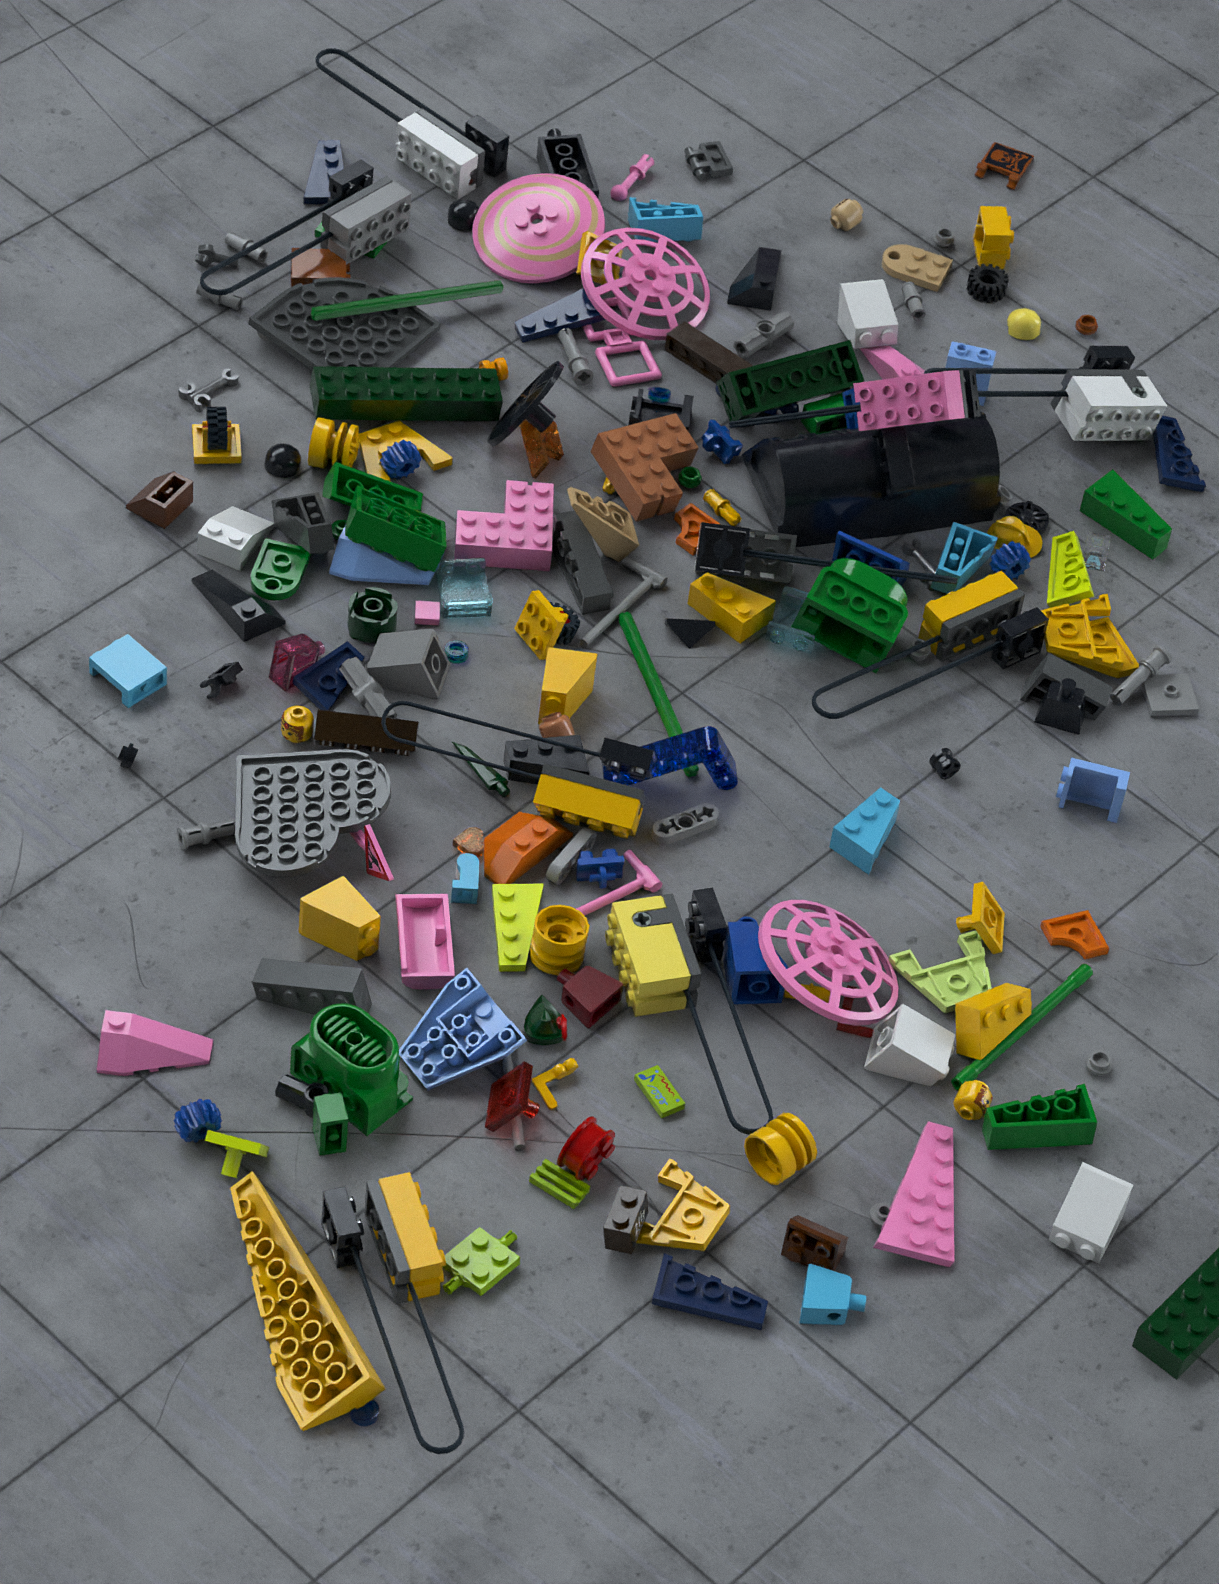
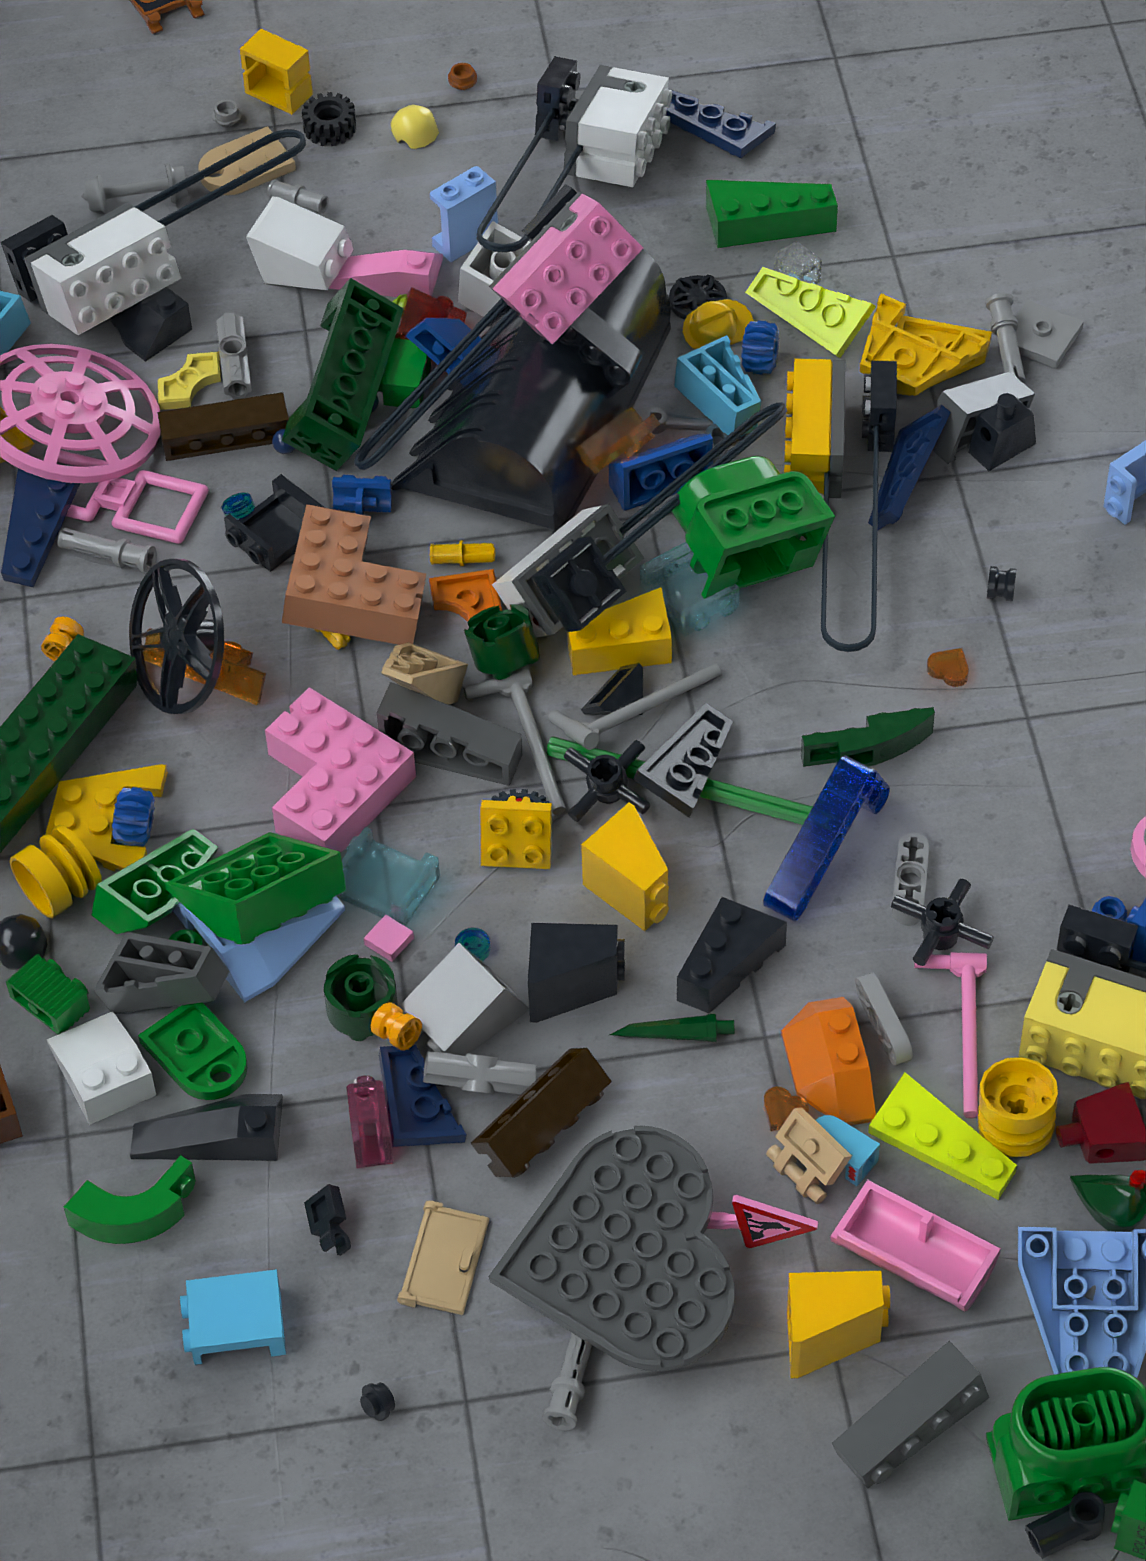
camera: 45 degrees left, 5 degrees up
(157, 600) = (133, 1217): none -> green arch
(246, 738) = (443, 1246): none -> tan door
(258, 489) = (49, 994): none -> green brick
(297, 724) = (472, 1180): yellow head -> none
(363, 637) = (399, 1028): none -> light orange wheel
(443, 861) = (814, 1149): none -> tan plate
(470, 691) = (572, 967): none -> black slope
(556, 725) = (685, 916): nougat head -> none
(571, 793) = (809, 960): piece -> none
(601, 868) = (927, 1002): blue hips -> none
(620, 649) = (614, 777): none -> black bar
(644, 623) = (588, 733): none -> light grey bar
(661, 849) = (942, 922): none -> black bar
(662, 675) = (686, 759): none -> wing
(669, 551) = (502, 640): none -> dark green brick
(690, 477) = (389, 554): green plate -> none
(720, 327) = (181, 387): none -> light yellow tile
(769, 761) = (881, 740): none -> dark green slope
(771, 241) = (116, 257): none -> white piece
(846, 214) = (118, 168): tan head -> none
(860, 771) = (949, 666): none -> clear orange tile
(863, 241) = (96, 193): none -> light grey piece
(864, 526) = (620, 436): none -> clear orange bracket
(866, 829) = (1052, 712): medium azure wedge -> none
(991, 675) = (906, 463): none -> dark blue wing

